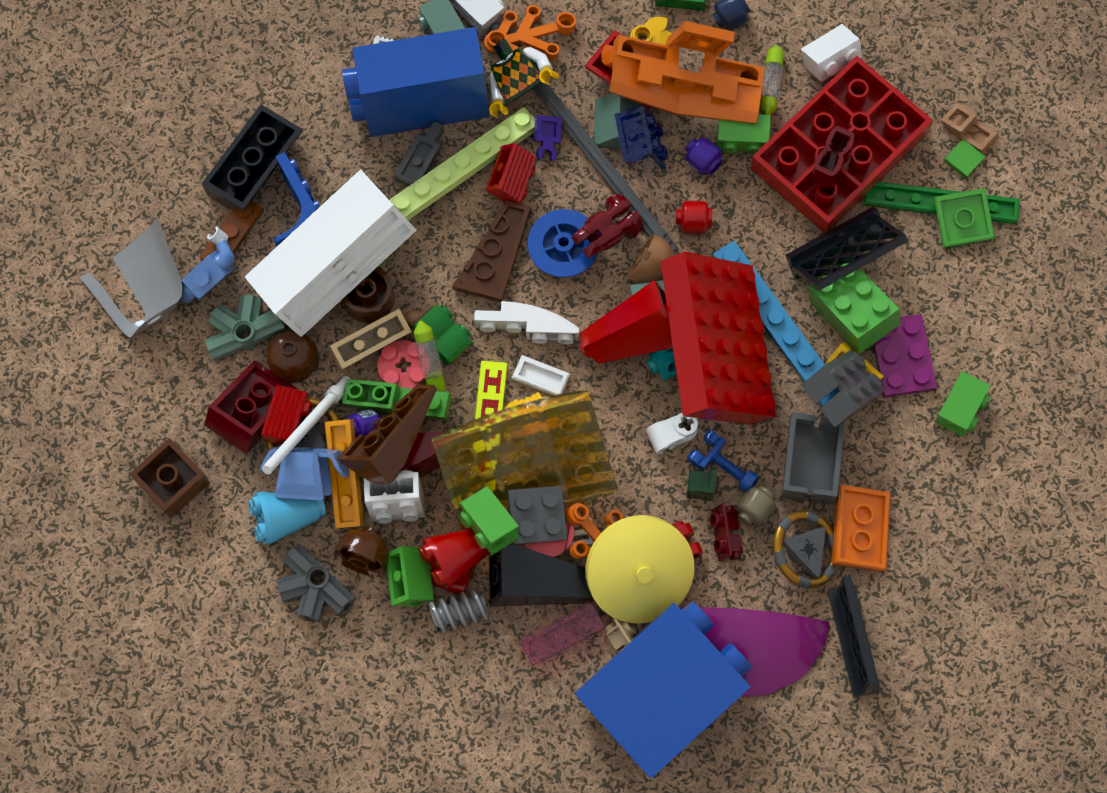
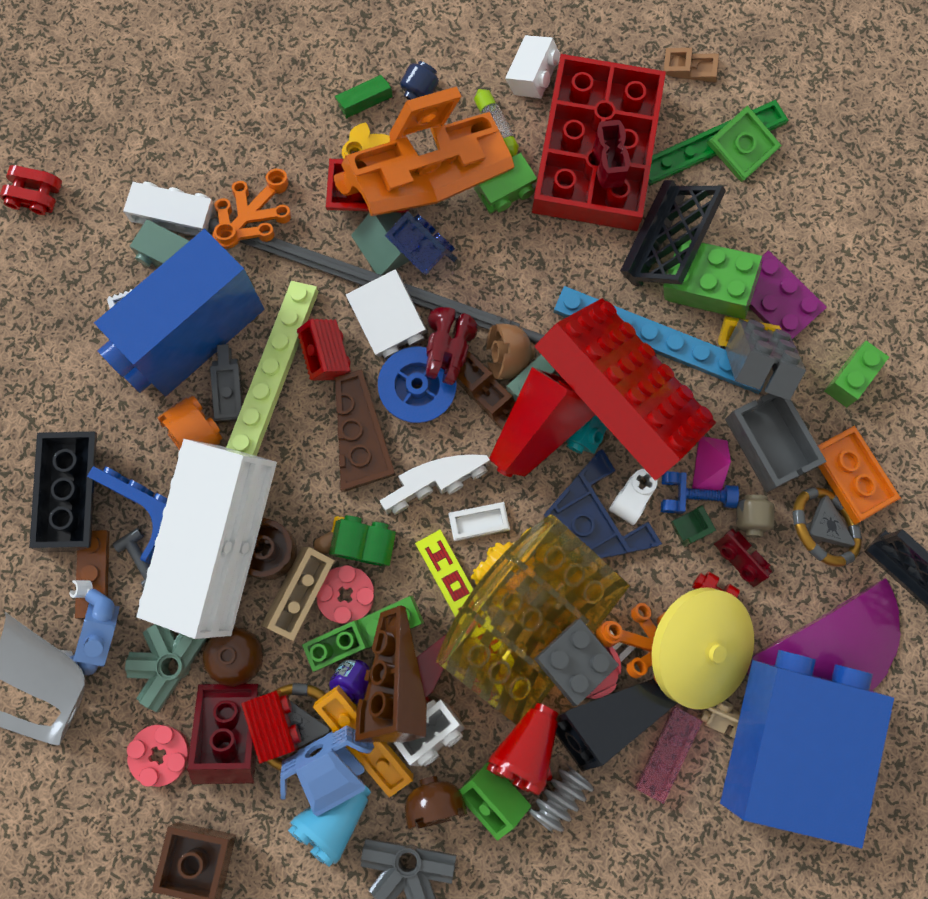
camera: 40 degrees left, 5 degrees up
(182, 381) = (174, 762): none -> coral plate
(272, 227) = (129, 542): none -> dark grey piece
(332, 396) = (299, 672): white bar -> none
(375, 164) = (188, 422): none -> orange brick
(429, 356) = (369, 575): clear piece -> none
(489, 521) = (542, 703): bright green brick -> none
(516, 74) = (267, 253): torso -> none
(547, 132) = (330, 291): dark purple plate -> none
(578, 176) = (387, 314): none -> white brick
(614, 276) = (485, 390): none -> reddish brown slope
(622, 428) = (588, 519): none -> dark blue wing
(694, 217) = (515, 286): red head -> none
(703, 156) = (485, 226): dark purple head -> none
(752, 448) = (711, 464): none -> dark pink slope
(919, 452) = (856, 374): none -> bright green brick
(962, 404) = (860, 307): bright green brick -> none
(964, 158) = (705, 93): bright green piece -> none

